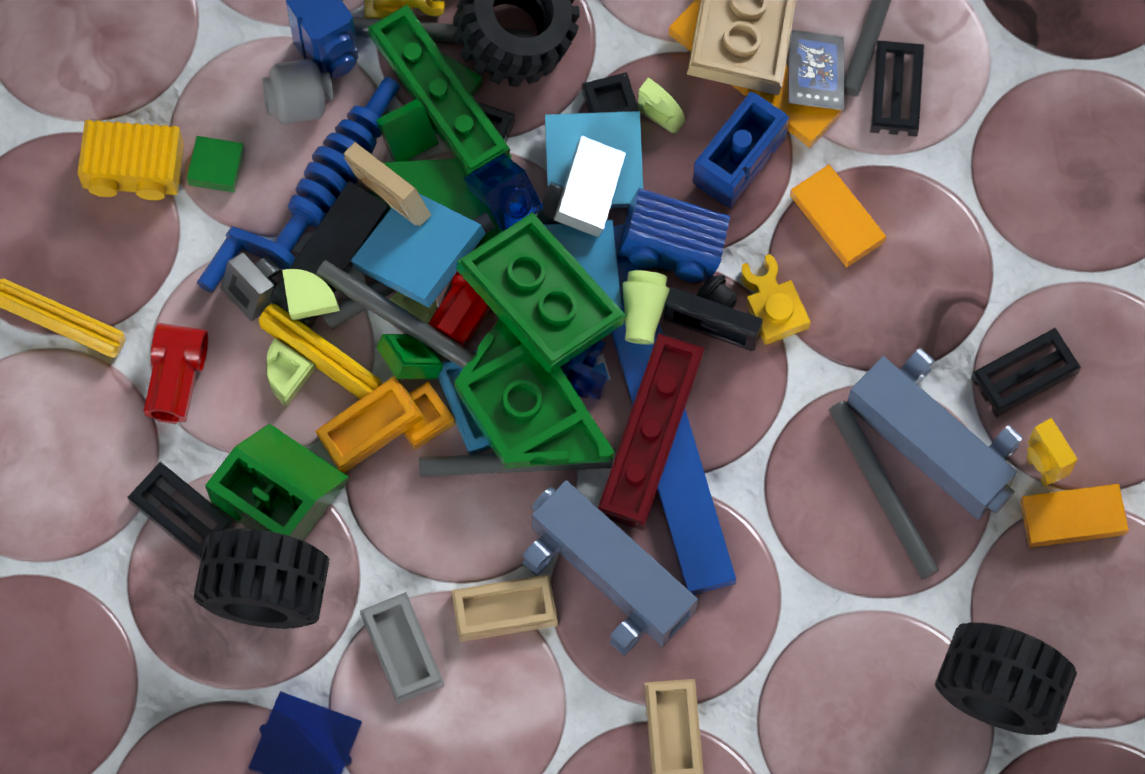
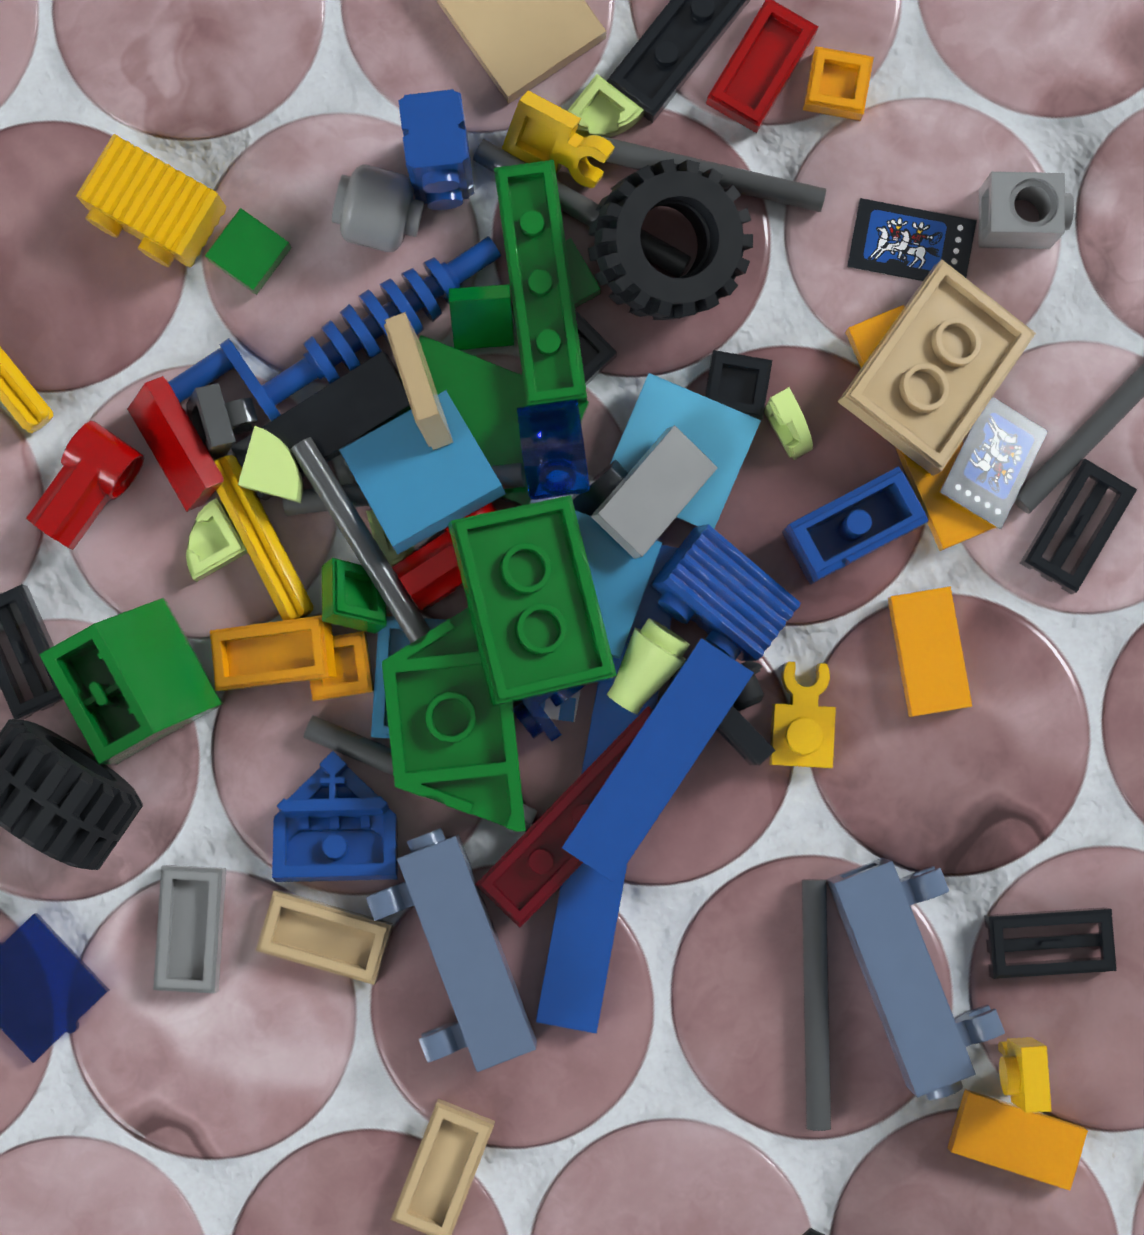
camera: 25 degrees right, 15 degrees up
(228, 313) = (175, 443): none -> red tile
(474, 529) = (334, 830): none -> blue slope
(683, 361) = (657, 760): none -> blue tile

